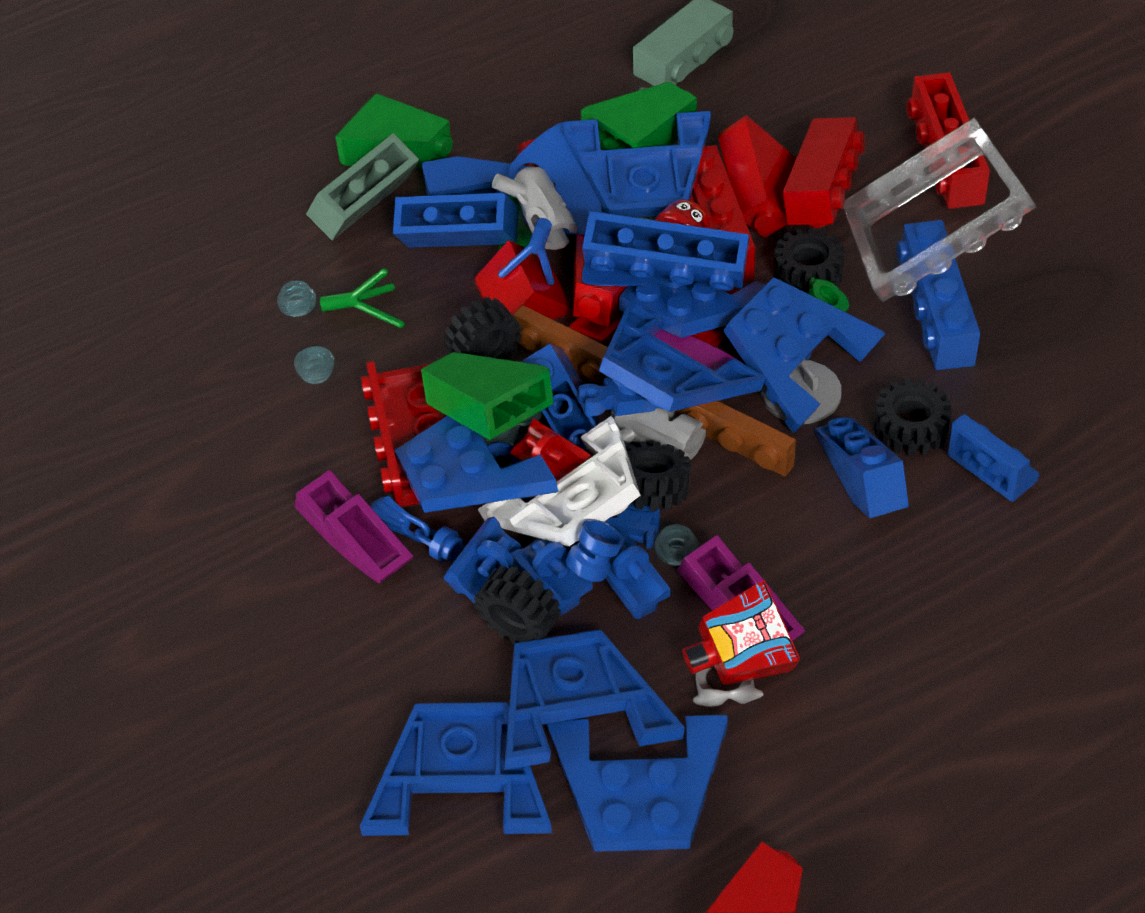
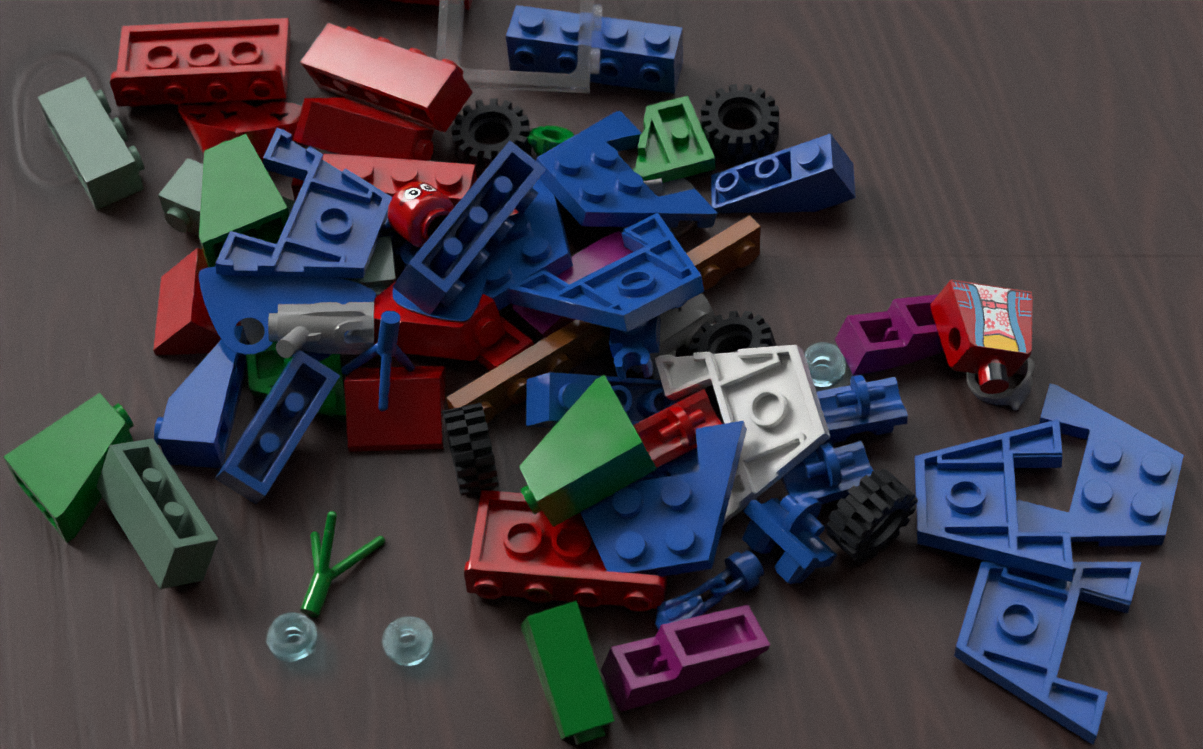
camera: 70 degrees left, 5 degrees up
(307, 449) = (568, 672): none -> green slope
(593, 553) = (848, 414): blue wheel -> none
(729, 105) = (252, 121): none -> red piece
(795, 74) = (202, 62): none -> red bracket
(863, 375) = (672, 143): none -> green wing
(990, 458) = (827, 80): blue bracket -> none

